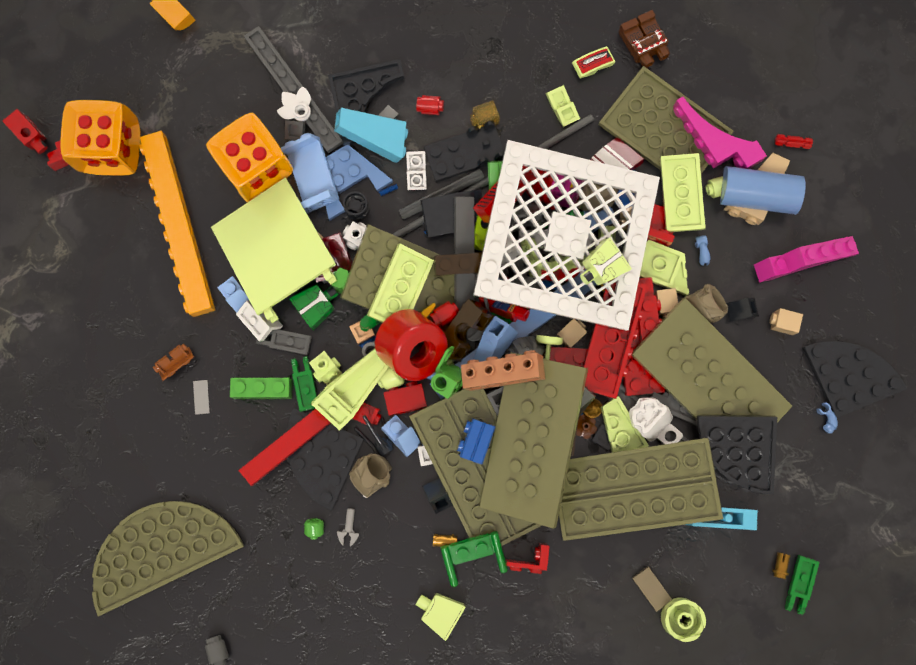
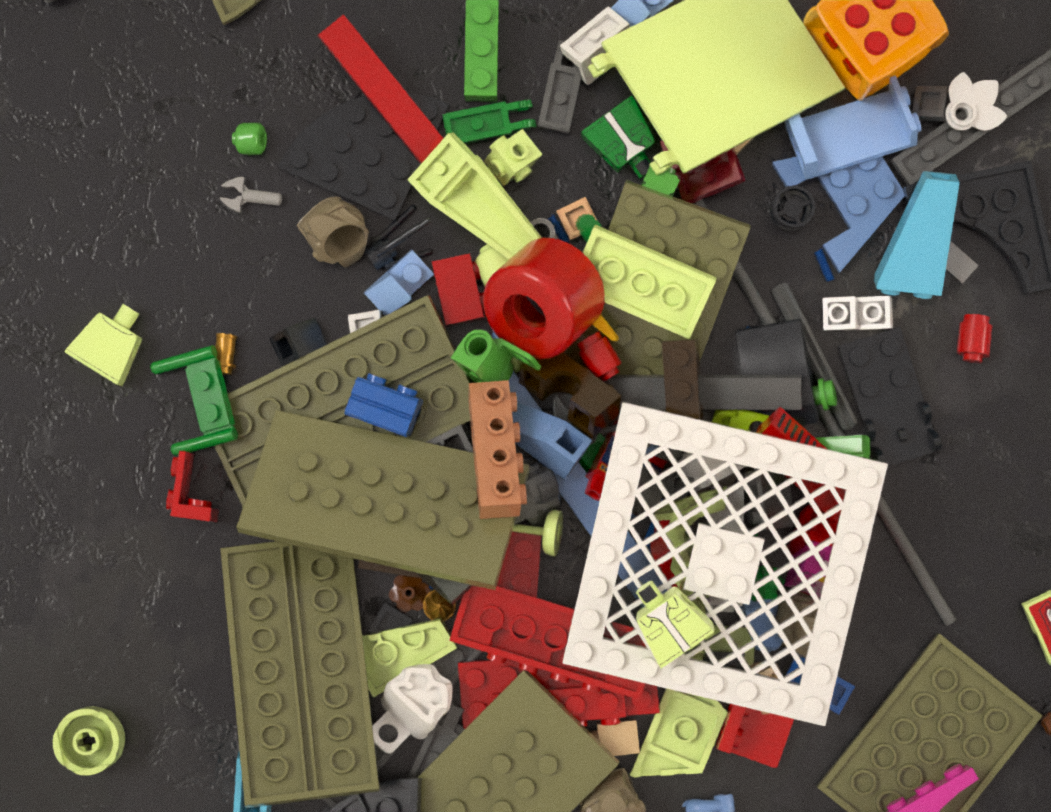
camera: 90 degrees right, 5 degrees up
(349, 232) = (746, 197): white brick -> none
(371, 413) = (437, 231): red bracket -> none
(464, 185) = (825, 394): none -> bright green plate
(484, 113) = (955, 433): clear yellow brick -> none
(562, 106) = (971, 571): yellowish green slope -> none
(572, 333) = (564, 573): tan brick -> none
(619, 155) = (871, 661): slope -> none
(652, 588) = (139, 693): dark tan tile -> none
(682, 192) = (808, 772): yellowish green plate -> none

